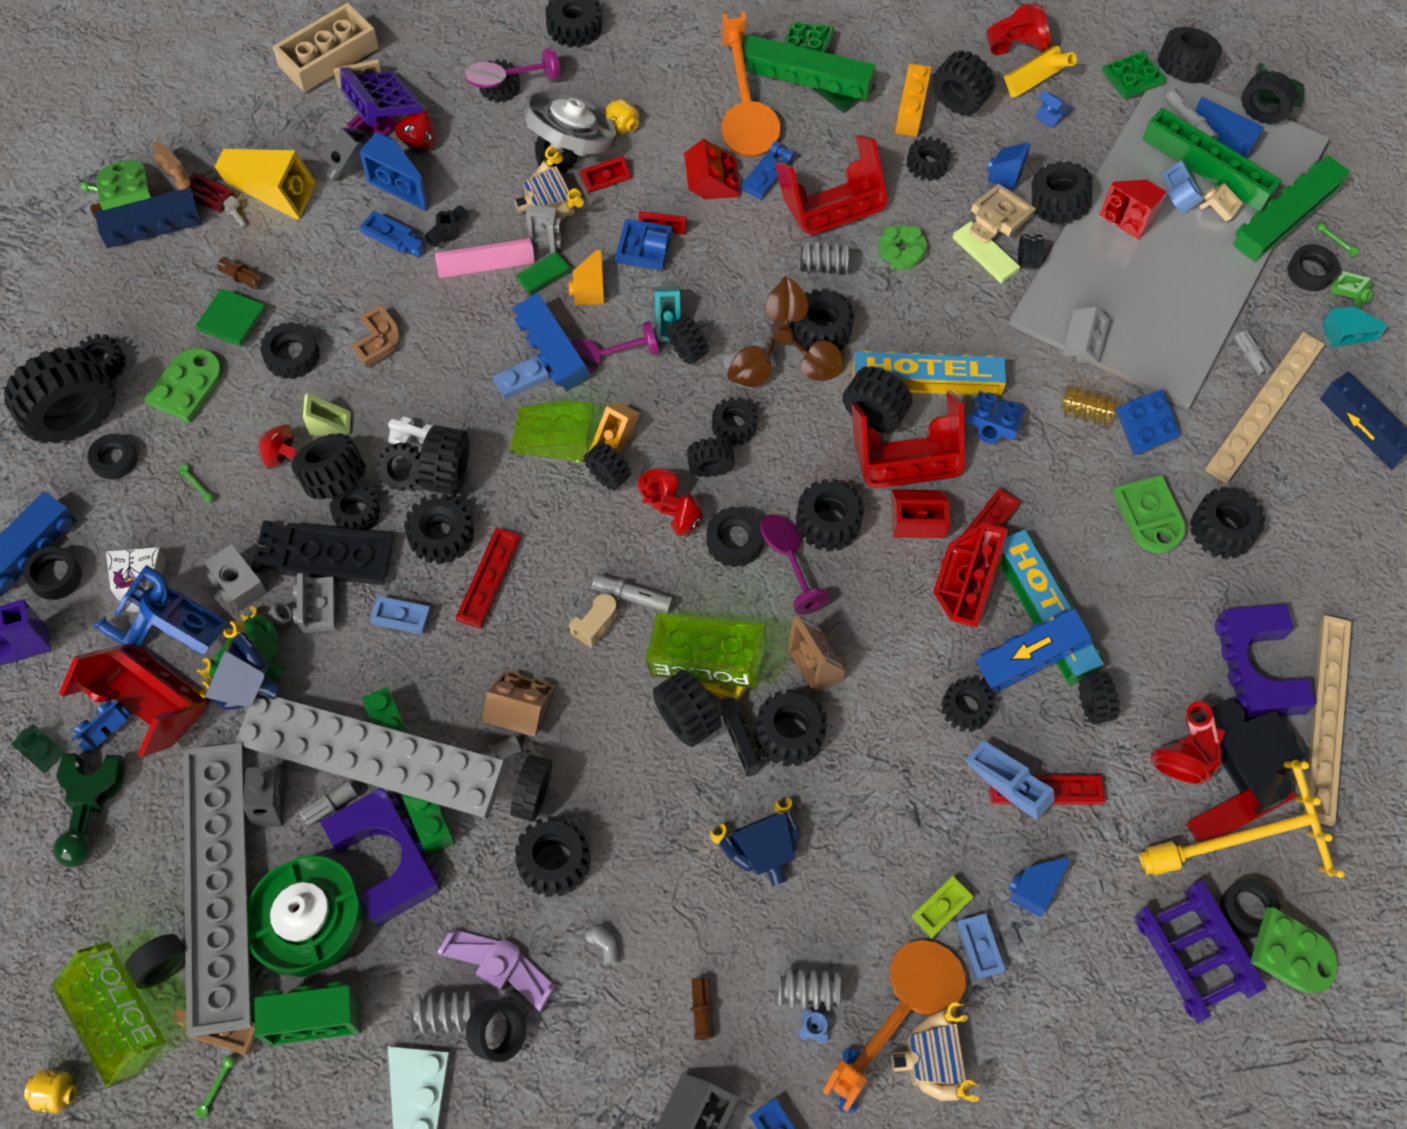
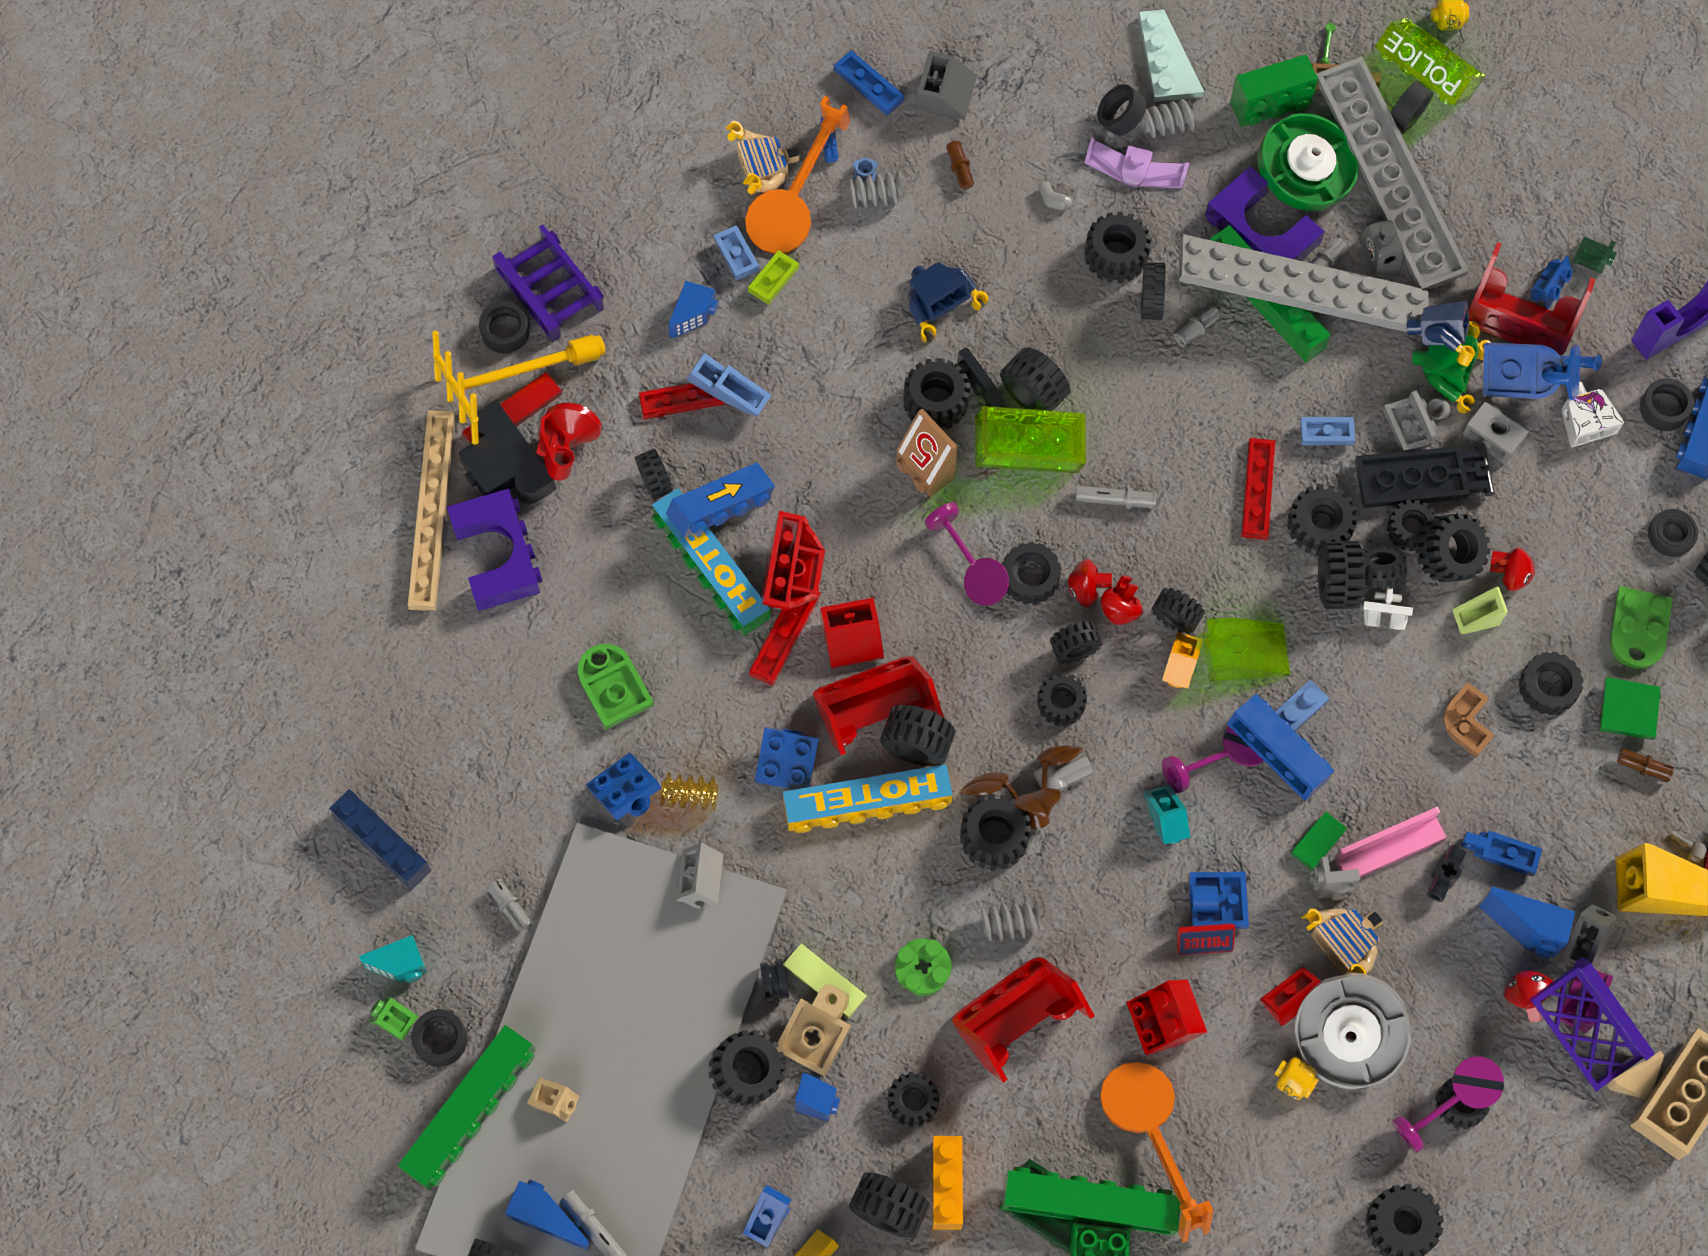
camera: 170 degrees right, 5 degrees up
(84, 796) = (1533, 220): dark green piece -> none
(185, 471) = (1597, 536): bright green hinge -> none
(518, 703) = (1189, 372): medium nougat slope -> none
(588, 281) = (1263, 833): light orange slope -> none
(596, 621) = (1142, 458): tan leg -> none
(687, 339) = (1135, 773): black tyre -> none
(765, 173) = (1101, 1042): blue plate -> none
(835, 497) = (947, 589): black tyre -> none
(962, 719) = (779, 439): black tyre -> none
(1133, 205) = (659, 1051): red slope -> none
(1182, 187) = (599, 1101): medium blue plate -> none
(1211, 159) = (570, 1151): green brick -> none
(1237, 508) = (531, 663): black tyre -> none
(1264, 408) = (492, 845): tan plate -> none
(1293, 952) = (468, 291): bright green plate -> none
(1352, 251) = (388, 1082): bright green hinge -> none

